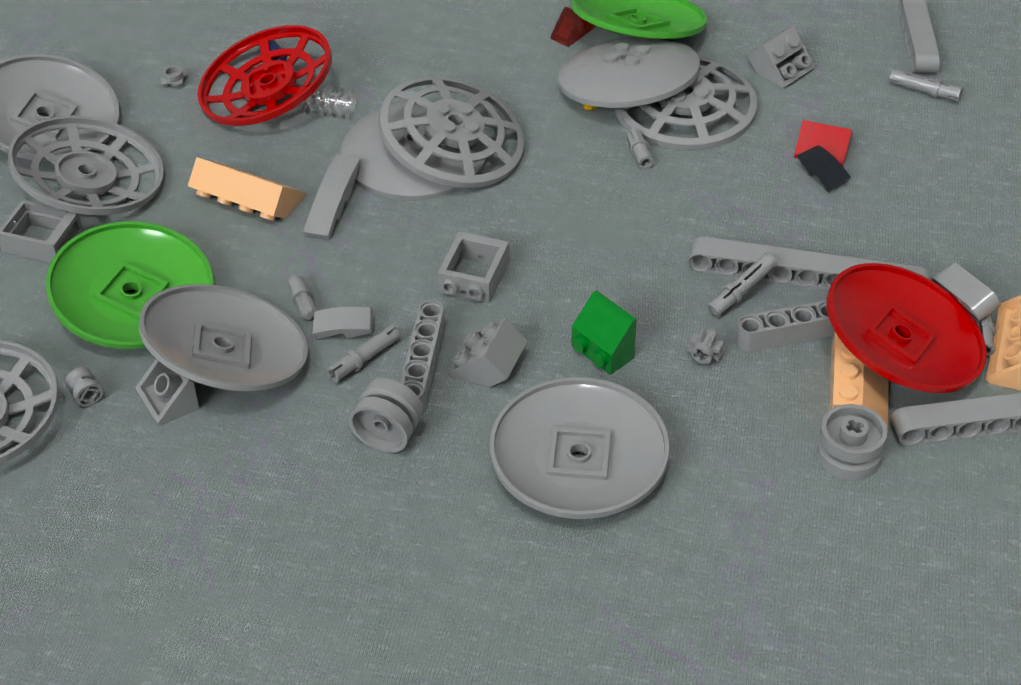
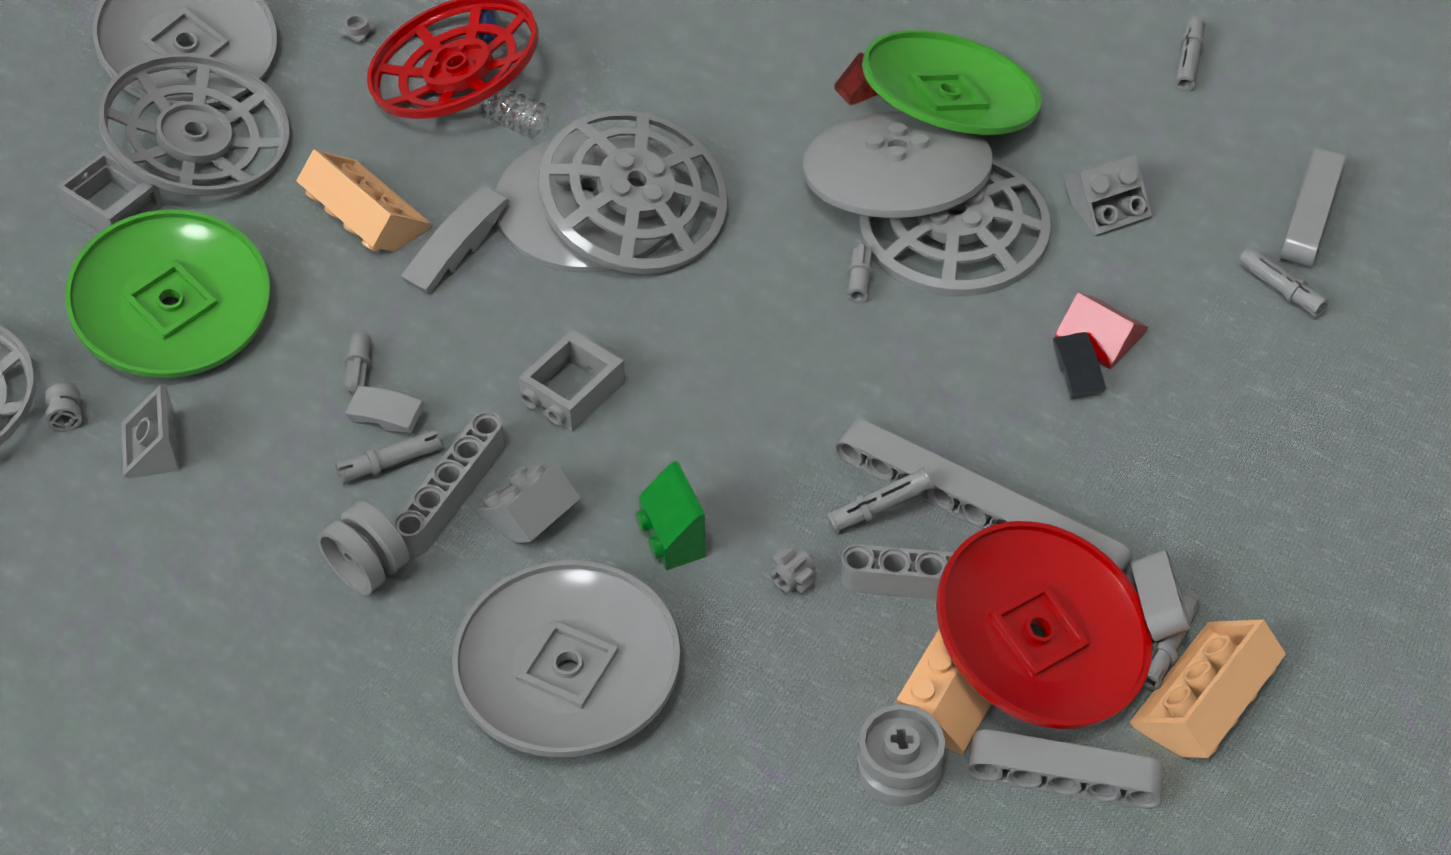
camera: 20 degrees right, 5 degrees up
(223, 337) = (198, 361): light grey dish -> none

